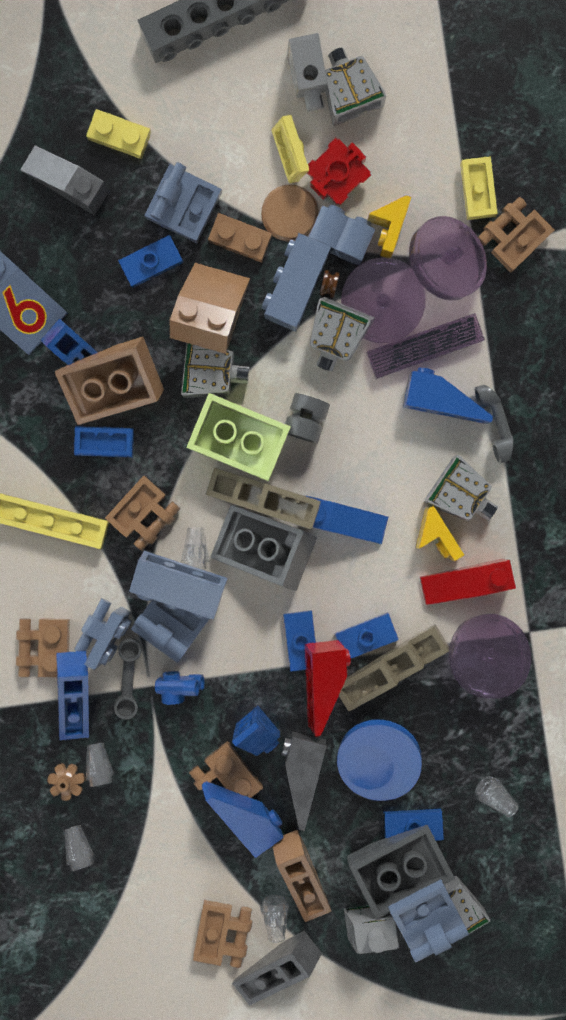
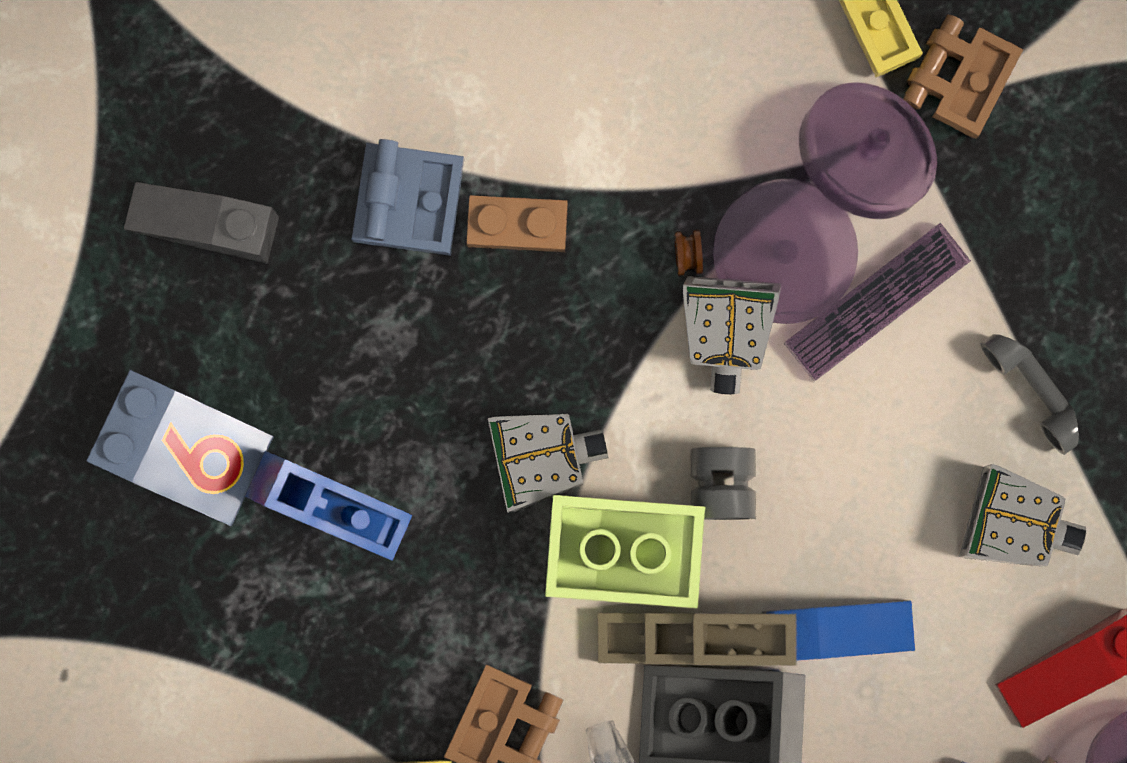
camera: 15 degrees left, 5 degrees down
(104, 441) = (402, 630): blue plate -> none
(111, 381) = (385, 528): medium nougat slope -> none
(118, 134) = (266, 120): light yellow plate -> none
(150, 261) = (384, 308): blue plate -> none
(208, 308) = (506, 355): medium nougat slope -> none
(289, 212) = (584, 157): medium nougat piece -> none
(290, 149) = (554, 57): light yellow plate -> none
(296, 281) = (633, 267): sand blue brick -> none
(338, 171) = (642, 68): red piece -> none
(345, 235) = (682, 167): sand blue brick -> none
(390, 217) = (756, 113): yellow slope -> none
(434, 527) = (993, 596): yellow slope -> none
(438, 396) = (925, 377): blue slope -> none

